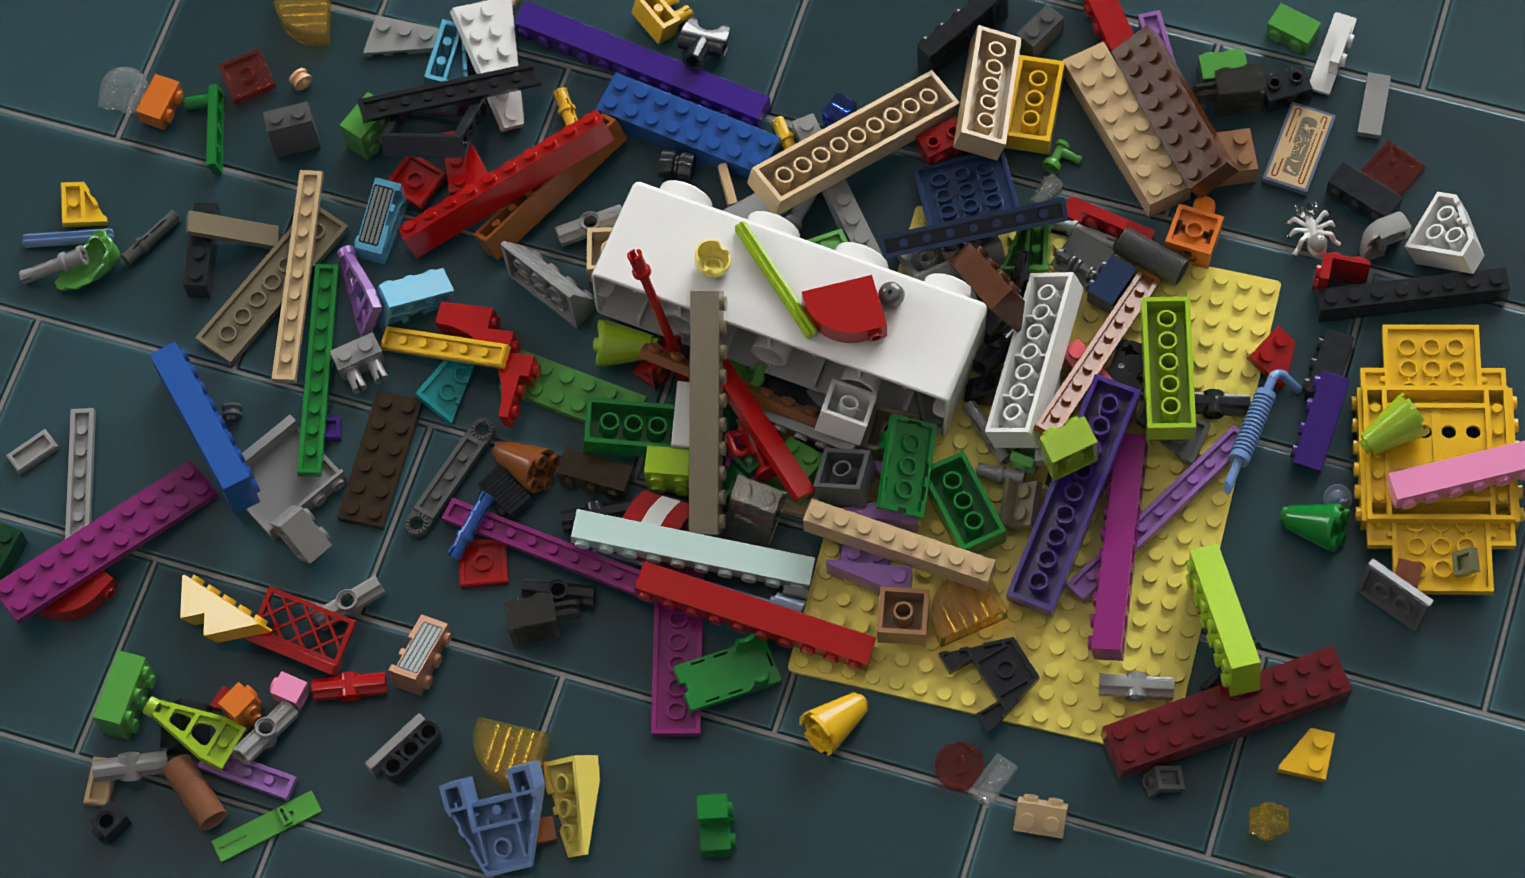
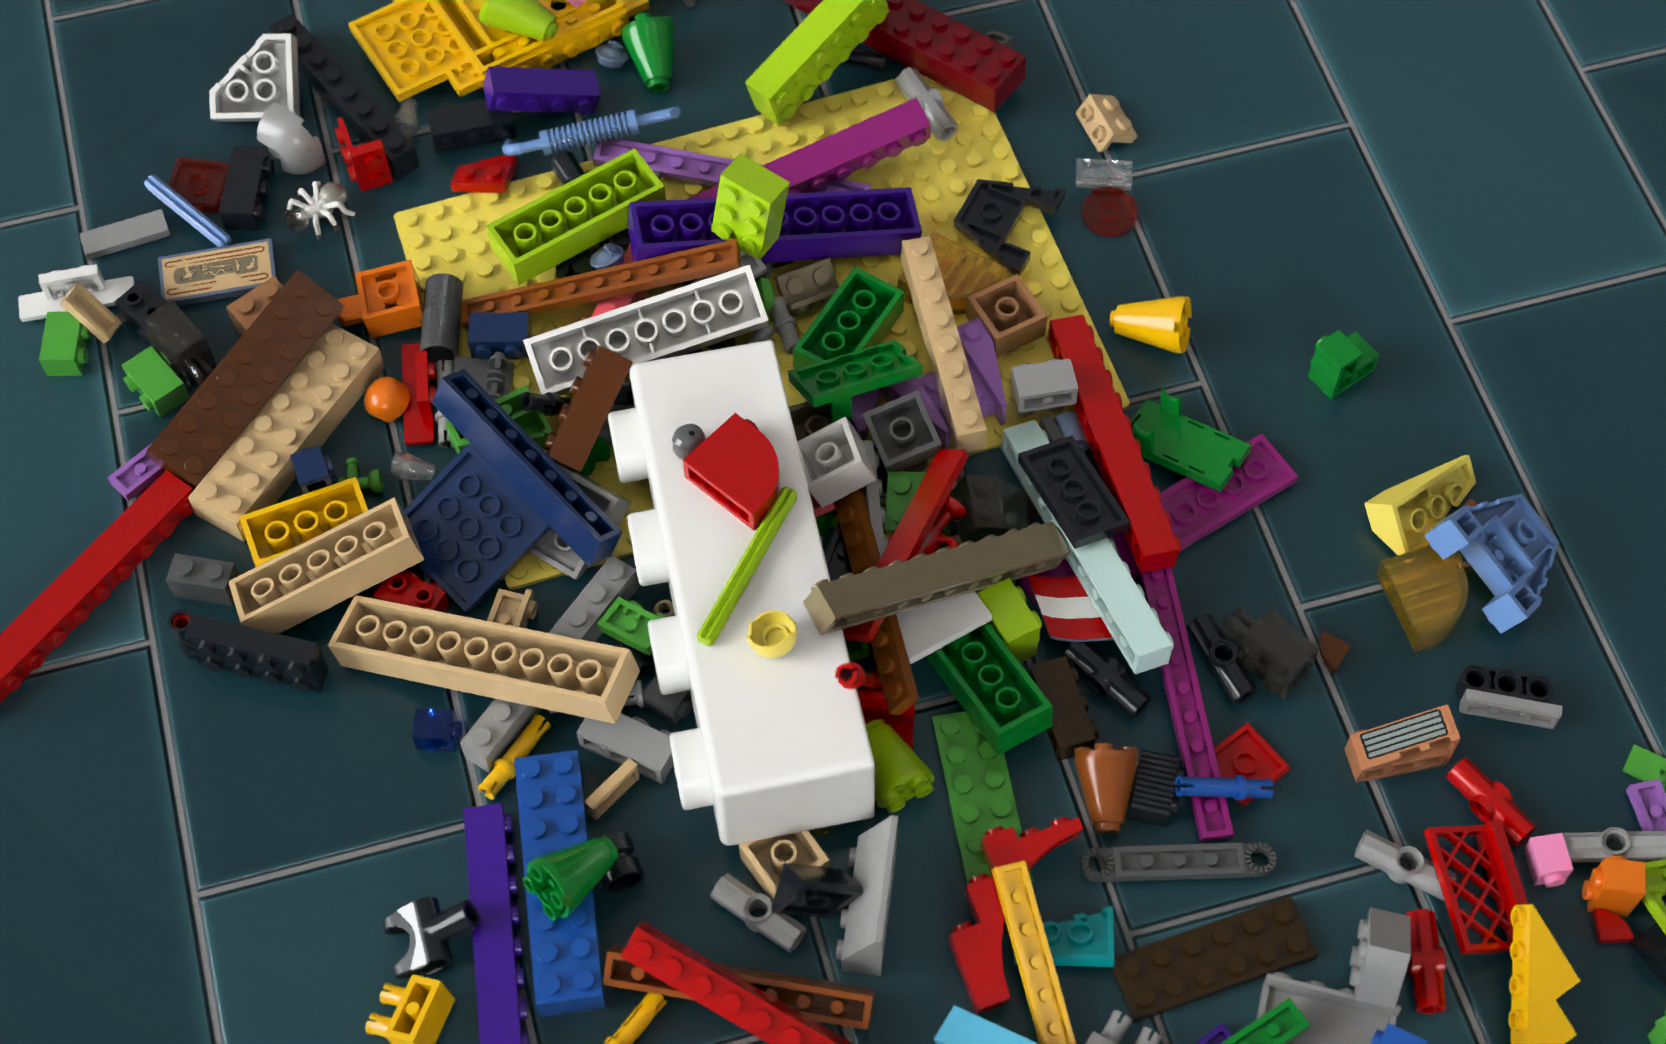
camera: 130 degrees left, 5 degrees down
(287, 573) = (1426, 963): none -> red piece
(517, 669) = (1332, 650): none -> reddish brown tile
(573, 250) = (814, 890): none -> black slope
(671, 116) = (569, 875): none -> green cone
(727, 556) = (1073, 492): none -> black plate
(821, 591) = (1044, 386): none -> light grey brick
(888, 189) = (513, 608): none -> tan bracket
(1070, 121) = (313, 469): none -> dark blue brick
(1114, 199) = (386, 398): none -> orange hair
(1122, 372) = (608, 256): none -> sand blue hat
(1303, 48) = (91, 312): none -> tan tile
(1363, 148) = (187, 211): none -> medium blue axle
(1364, 329) = (407, 118): none -> clear cone

